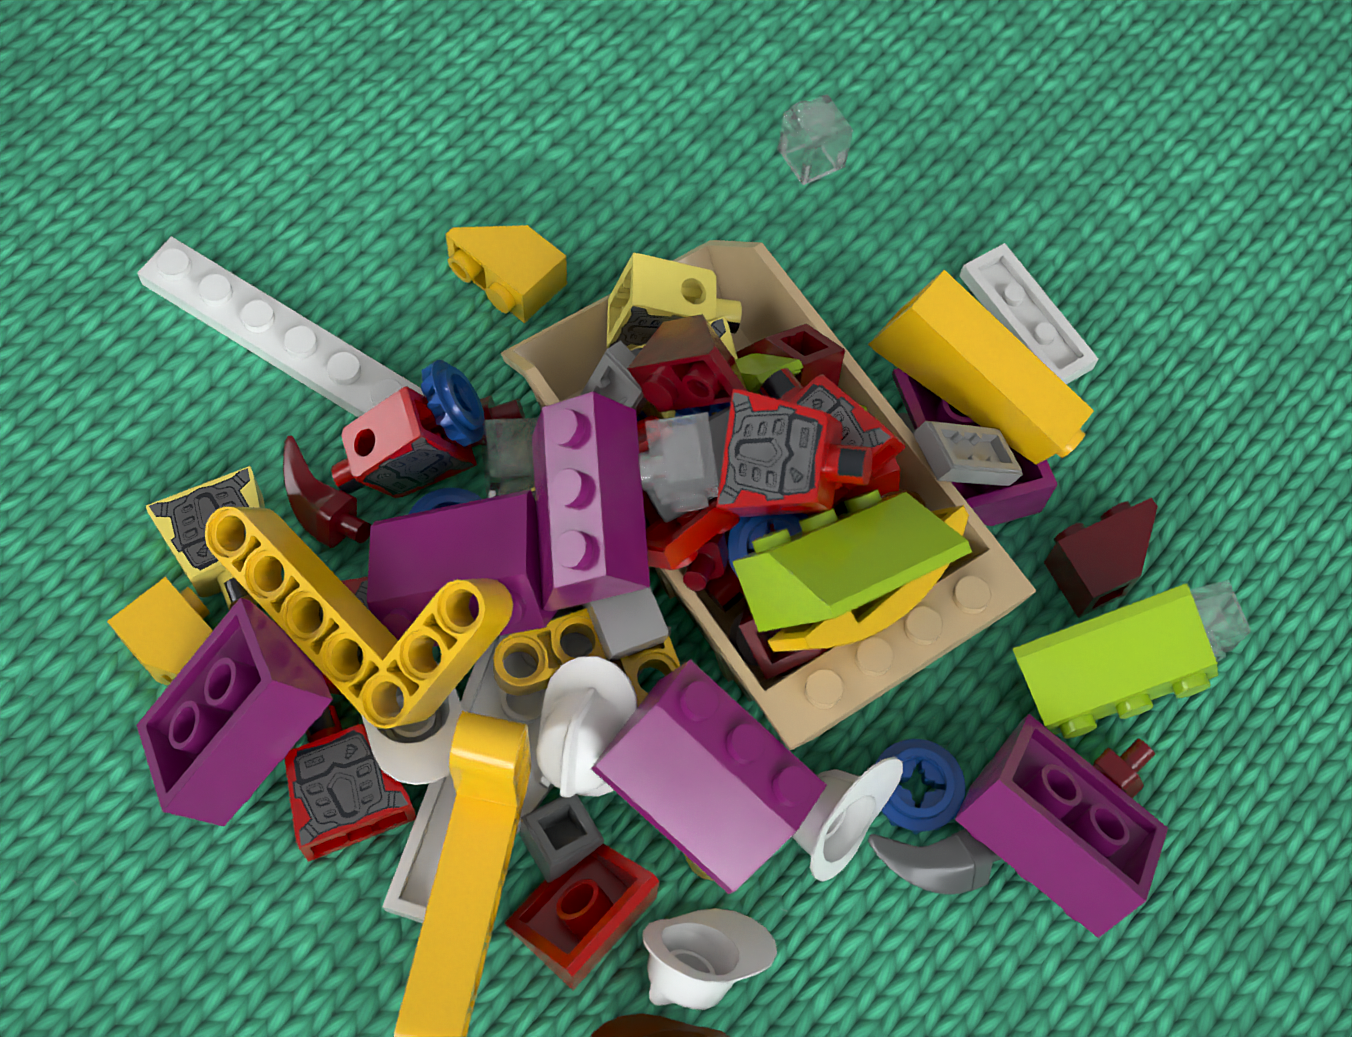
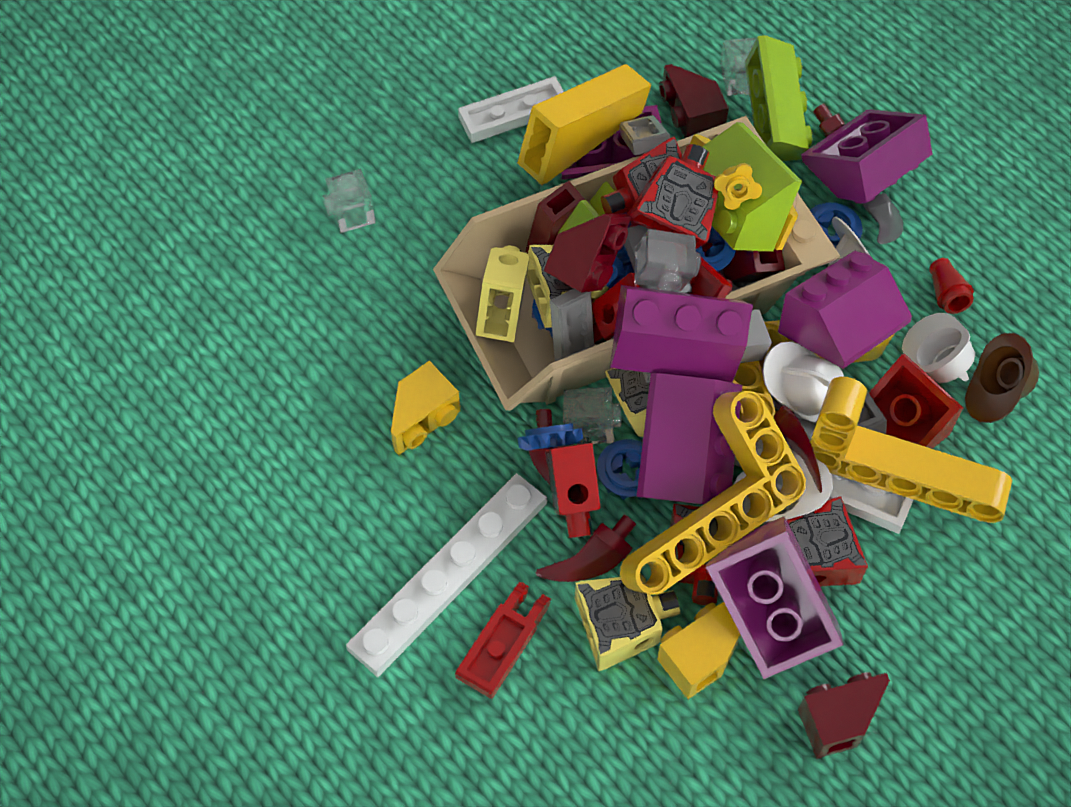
camera: 75 degrees left, 5 degrees down
(84, 834) = (841, 715): none -> dark red slope
(184, 405) = (501, 643): none -> red hinge
(513, 707) = (798, 441): none -> dark red bar
(808, 525) = (735, 175): none -> yellow plate
(837, 976) = (950, 287): none -> red cone

